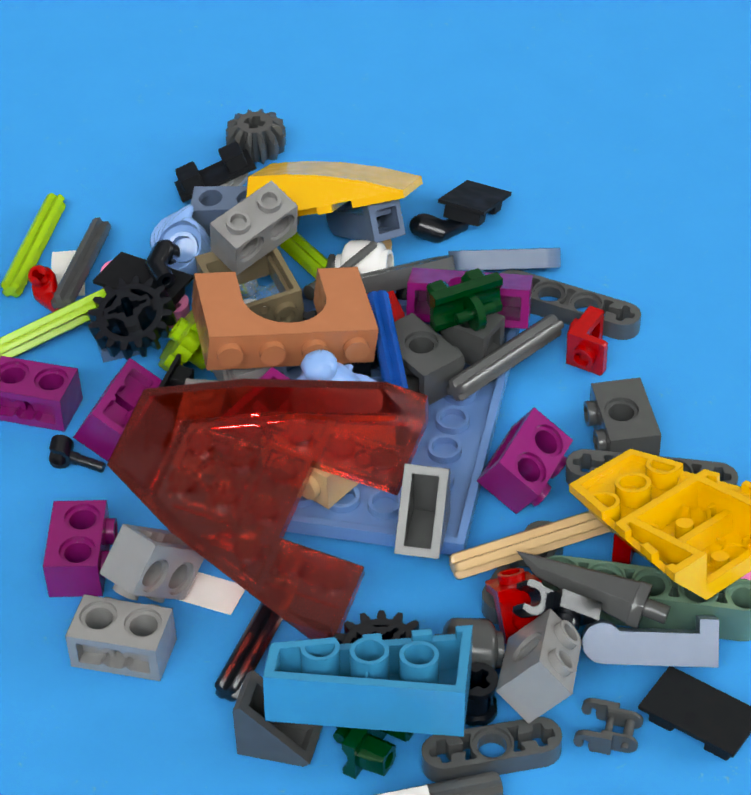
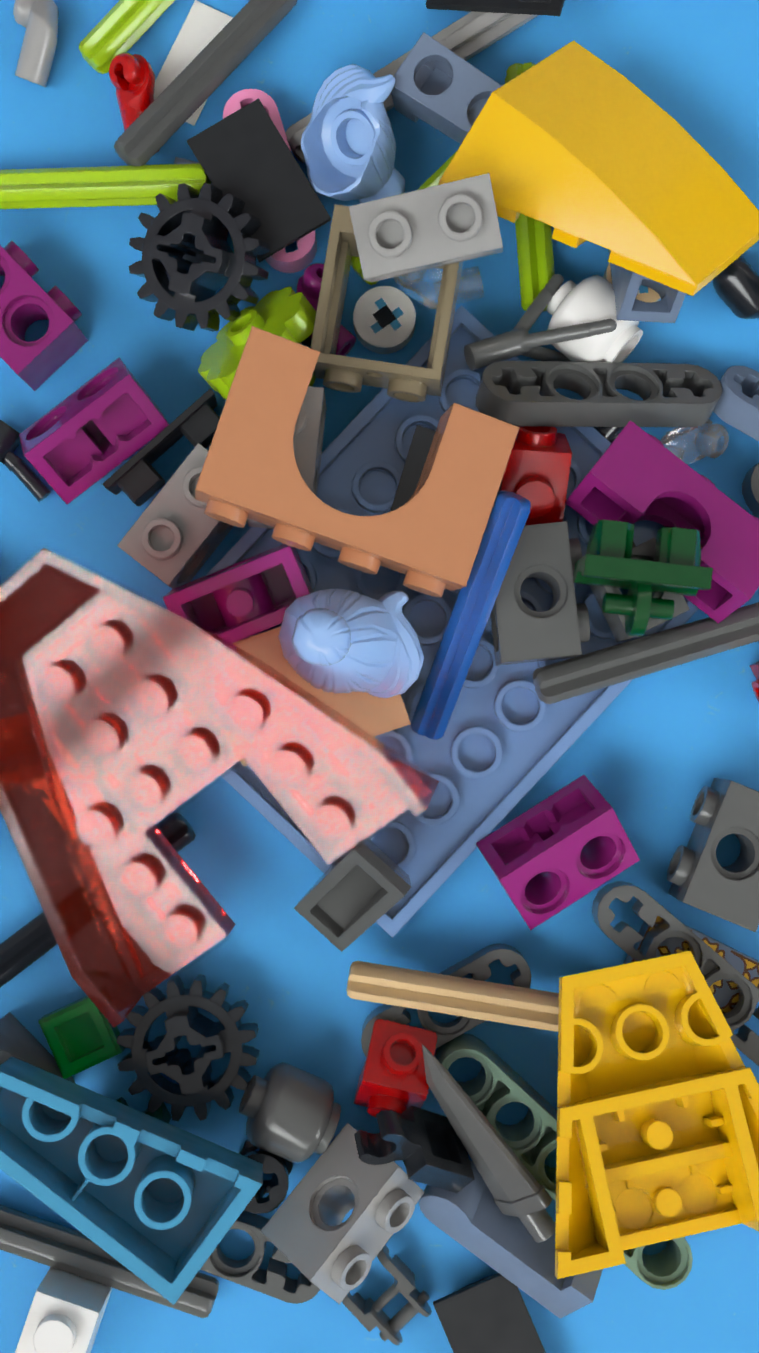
camera: 30 degrees right, 45 degrees up
(157, 262) = (286, 167): black arm -> none

